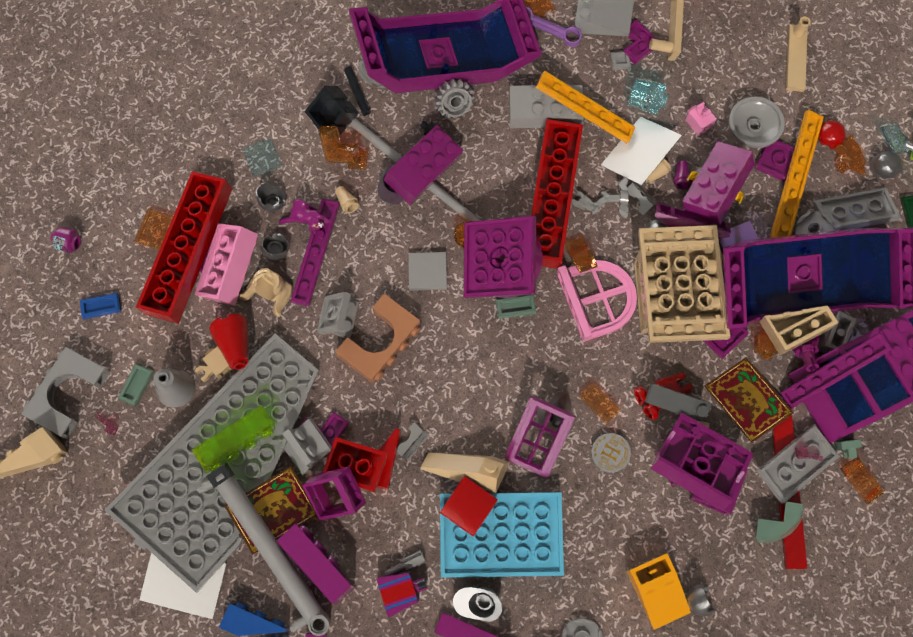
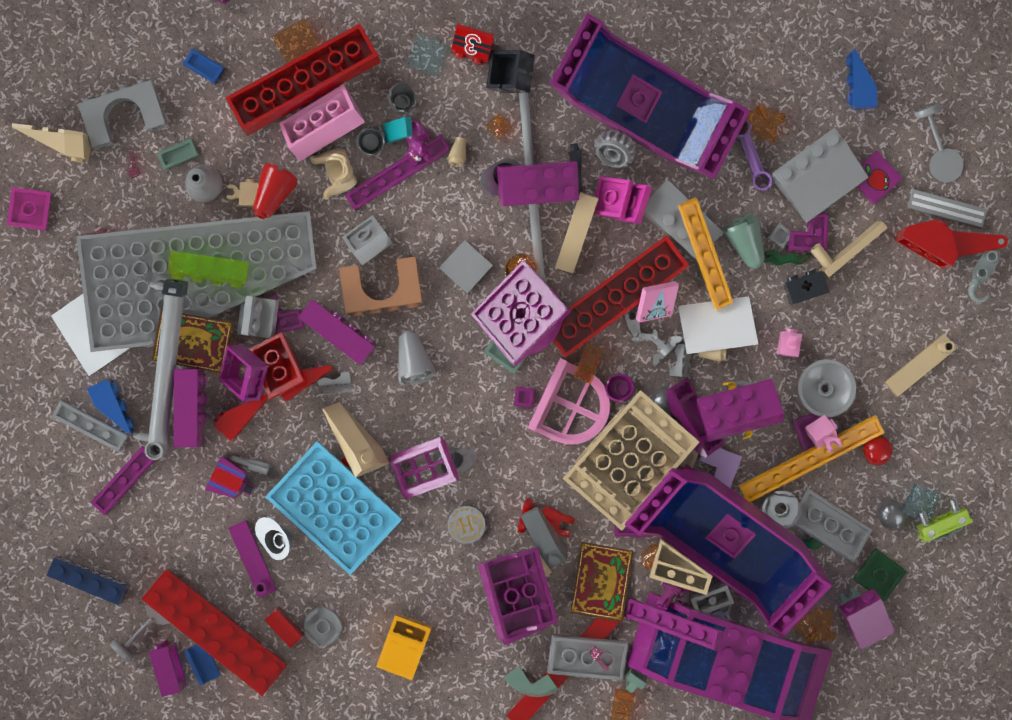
camera: 45 degrees right, 15 degrees up
(49, 531) = (29, 208): none -> dark pink plate
(287, 118) = (472, 44): none -> red slope
(287, 219) = (397, 130): none -> teal tile
(335, 150) = (484, 106): clear orange brick -> none
(359, 96) = (551, 66): black piece -> none
(361, 538) = (236, 419): none -> red slope
(378, 398) = (337, 332): none -> magenta brick
(455, 368) = (413, 360): none -> light grey cone
(468, 506) = (327, 468): red slope -> none
(483, 177) = (576, 232): none -> tan slope
(484, 132) = (613, 197): none -> dark pink plate
(501, 122) = (637, 204): none -> dark pink plate
(559, 322) = (524, 397): none -> magenta tile
(585, 168) = (657, 301): none -> bright pink tile
(599, 403) = (493, 482): clear orange tile -> none
(602, 78) = (747, 239): none -> sand green cone
(619, 251) = (620, 388): none -> magenta hair
(632, 74) = (778, 259): none -> dark green hair
(648, 95) = (767, 288): clear light blue gear -> none
(678, 68) = (816, 282): none -> black brick
(681, 176) = (728, 374): magenta cone -> none
(698, 600) = (423, 678): flat silver hair -> none
(786, 150) = (823, 433): none -> bright pink brick
(850, 156) = (873, 481): clear orange arm -> none

